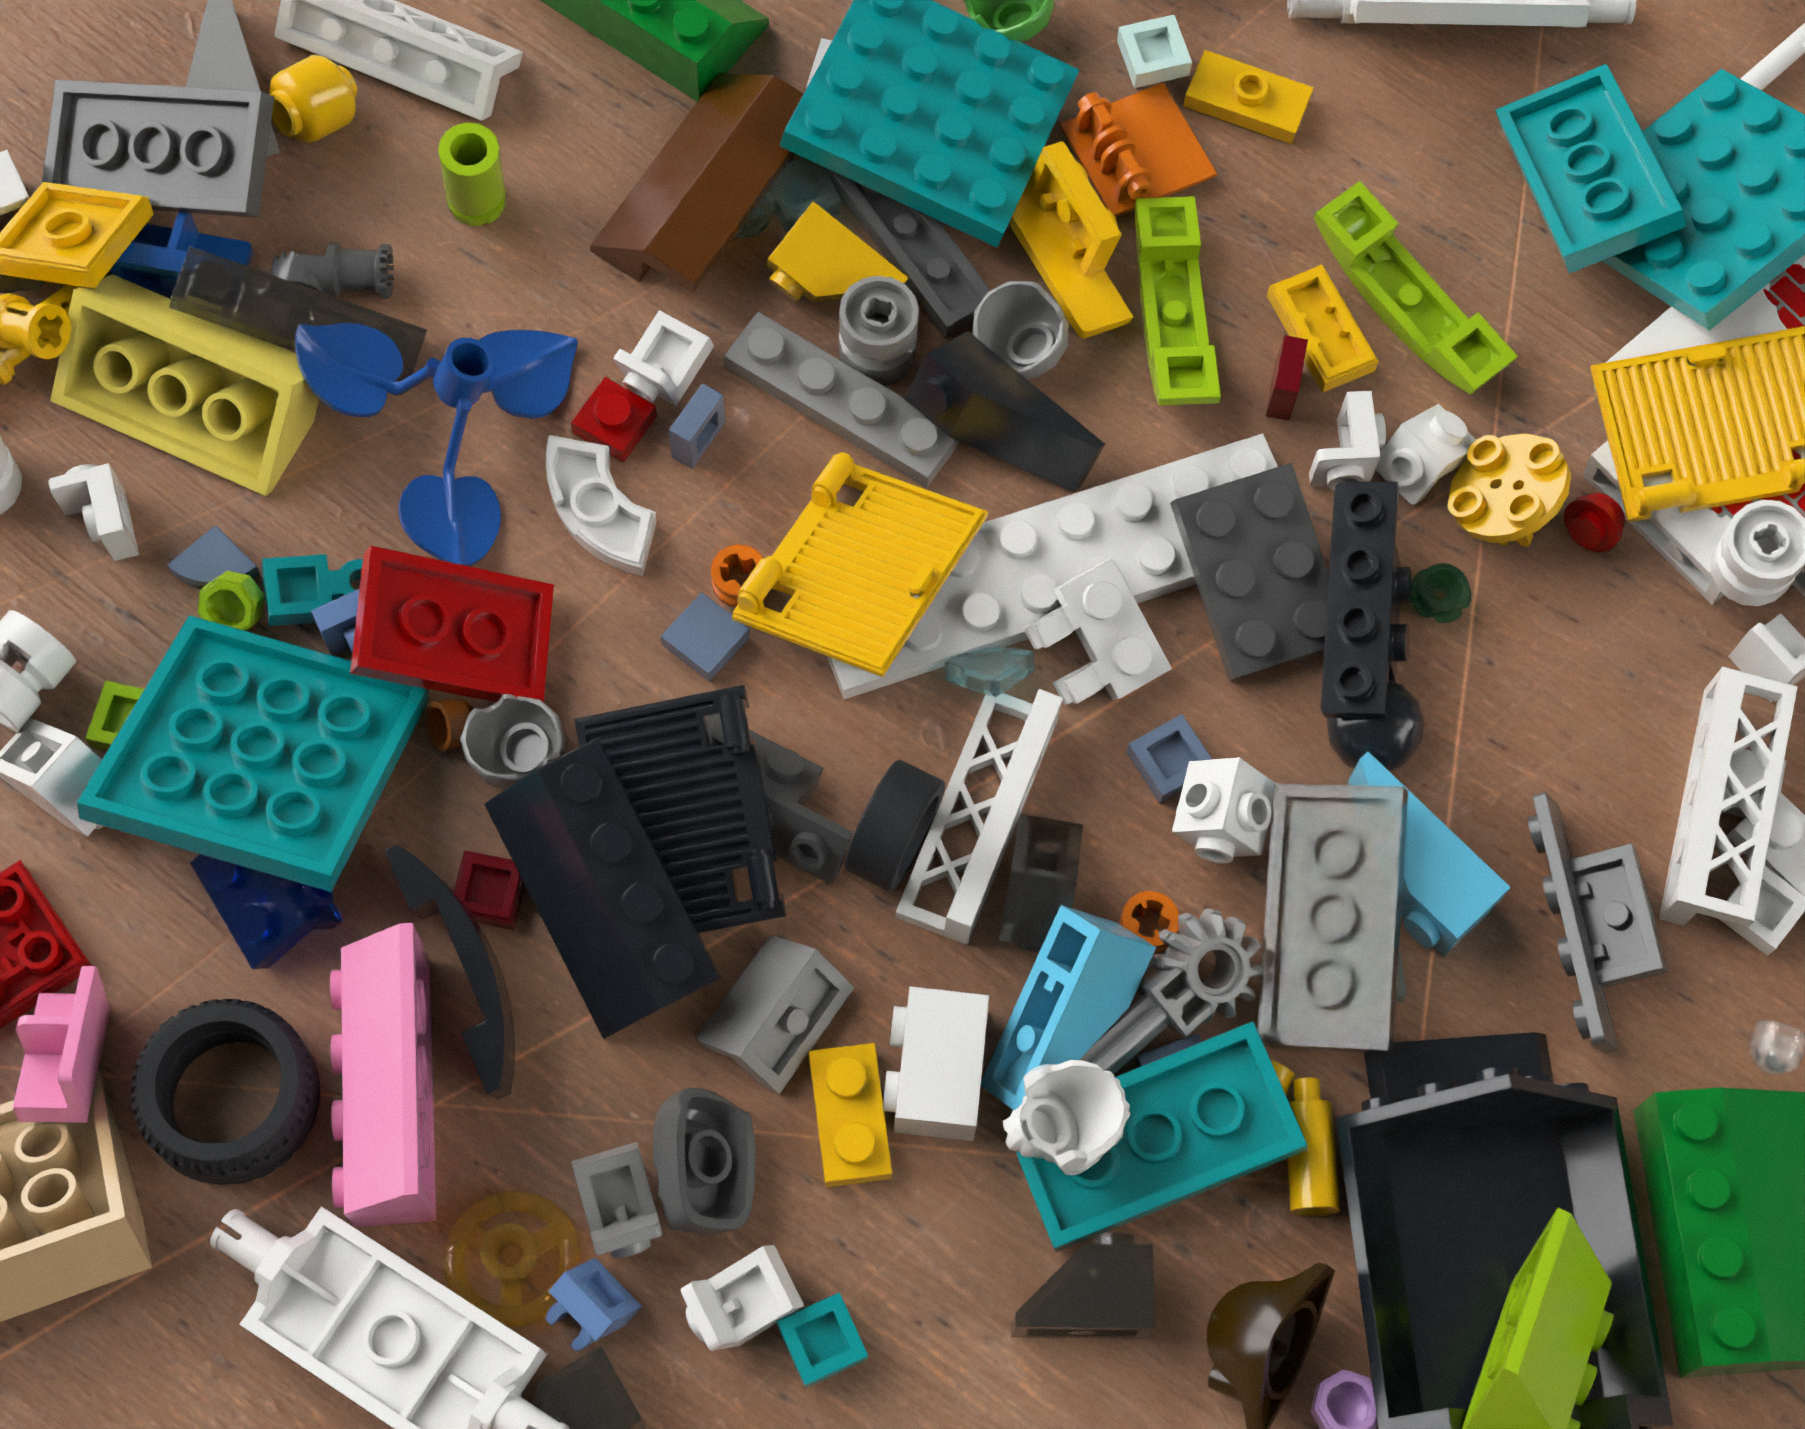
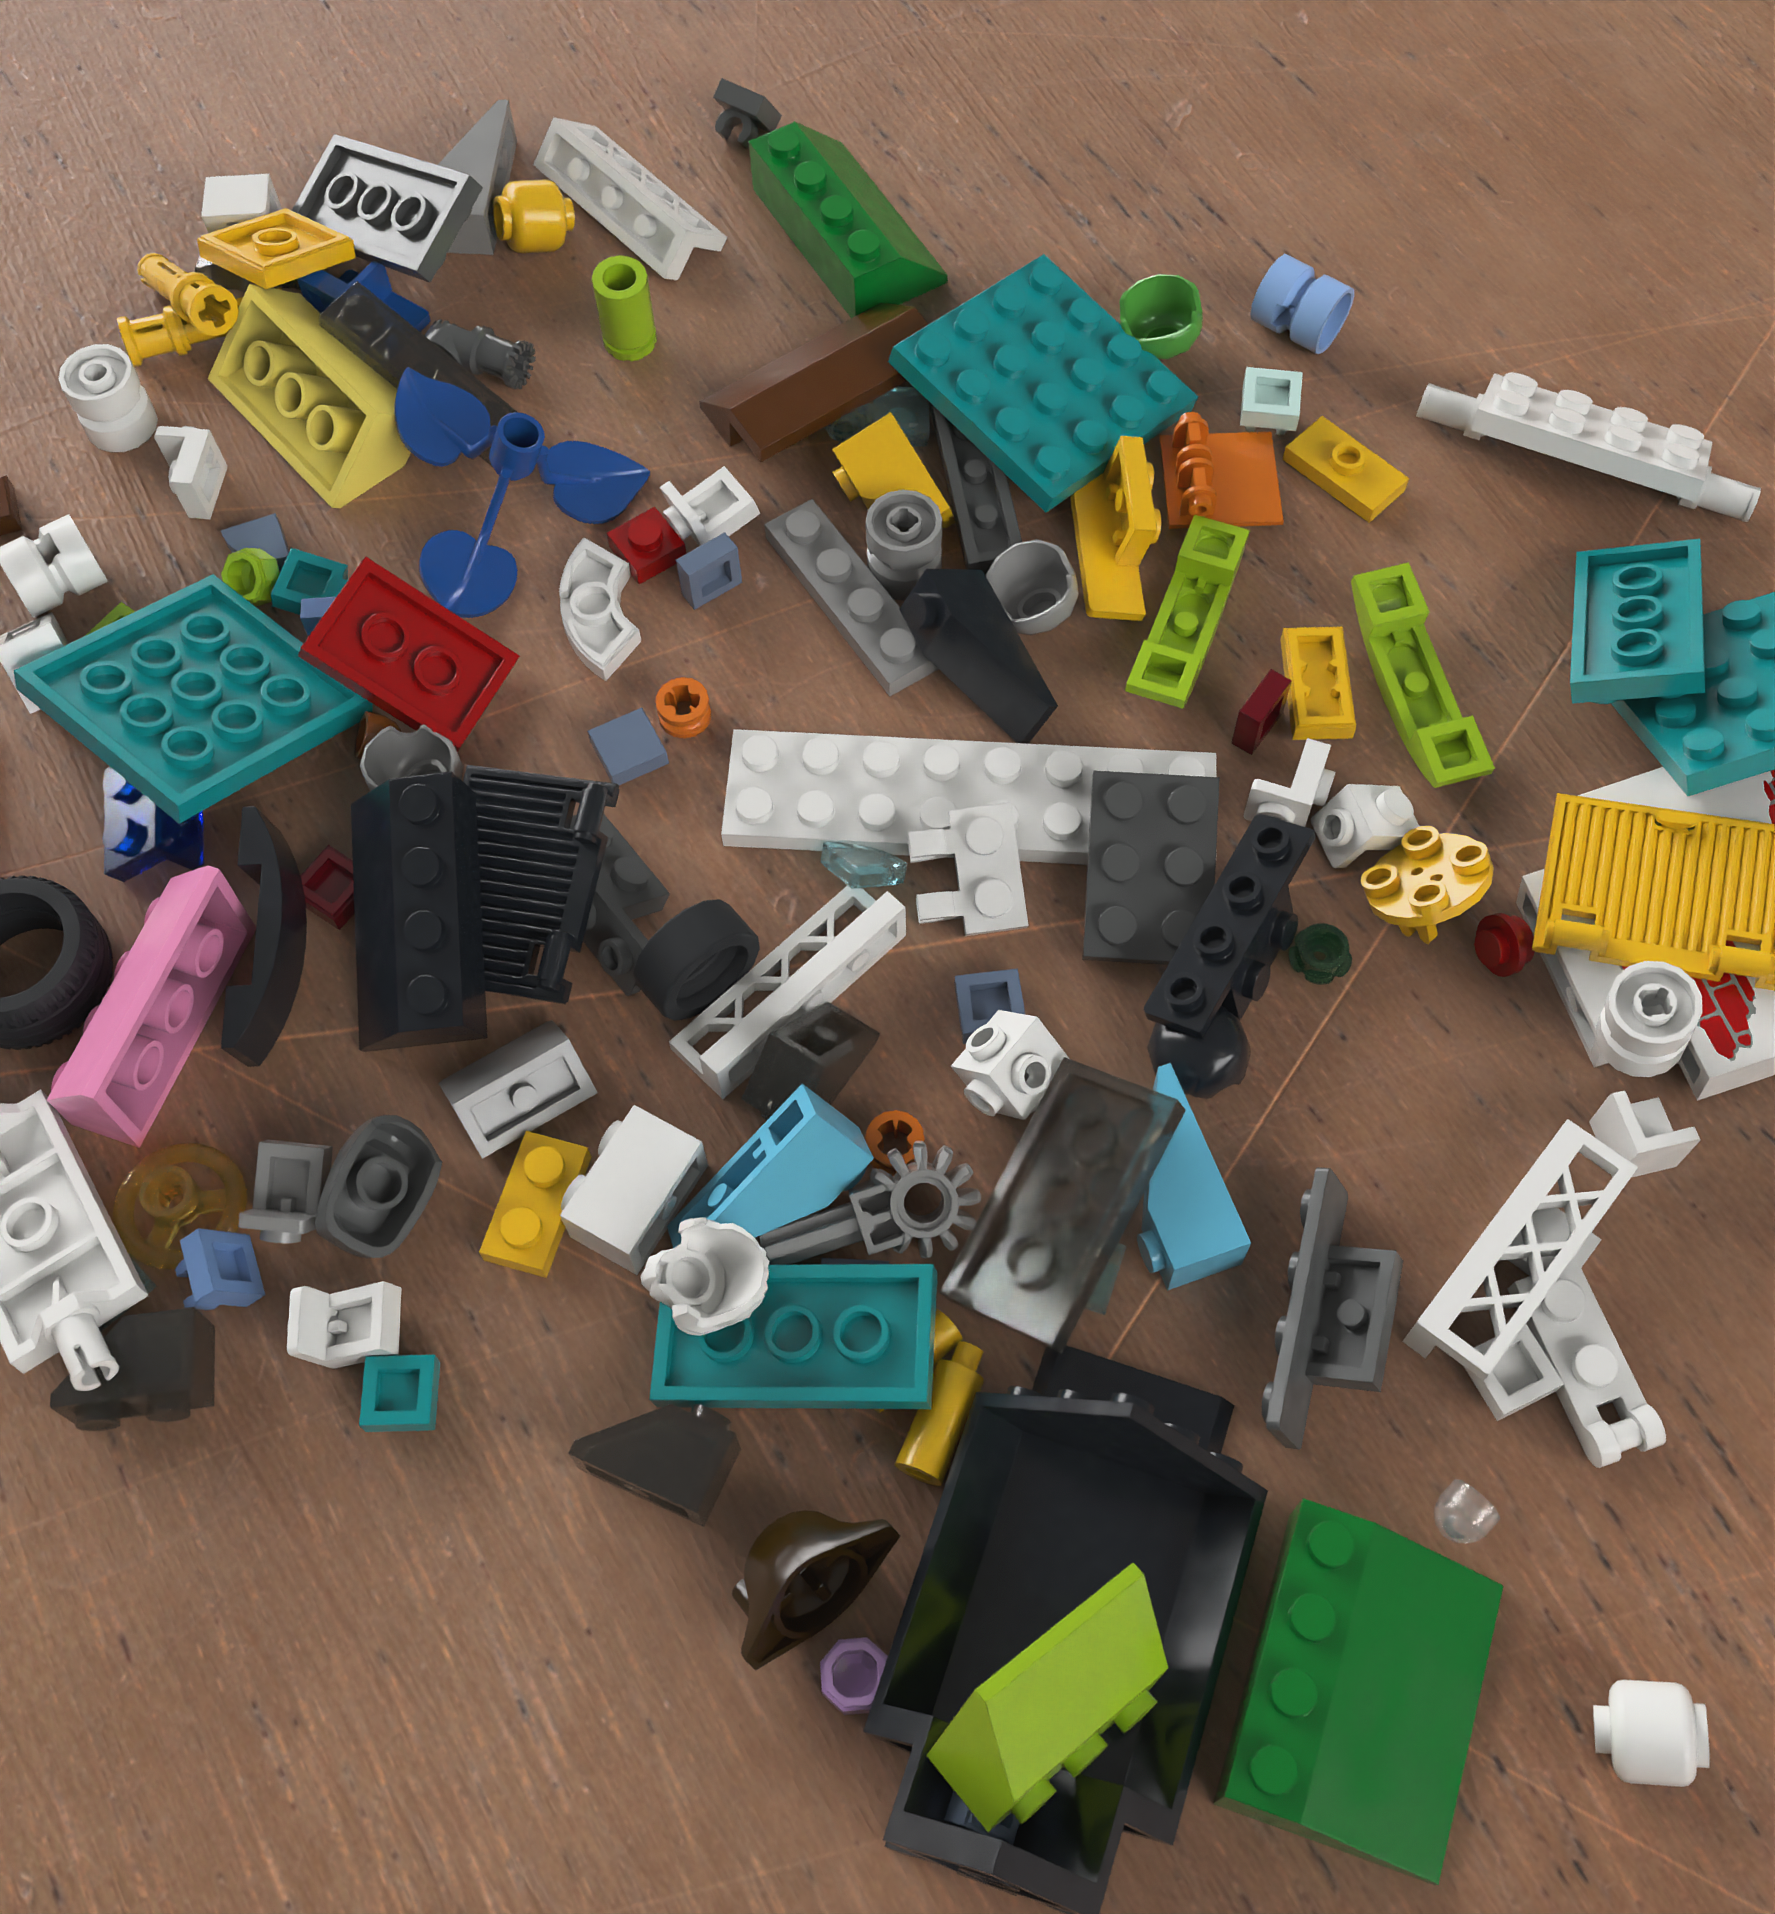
camera: 30 degrees right, 5 degrees down
(859, 566) = (783, 734): yellow window -> none

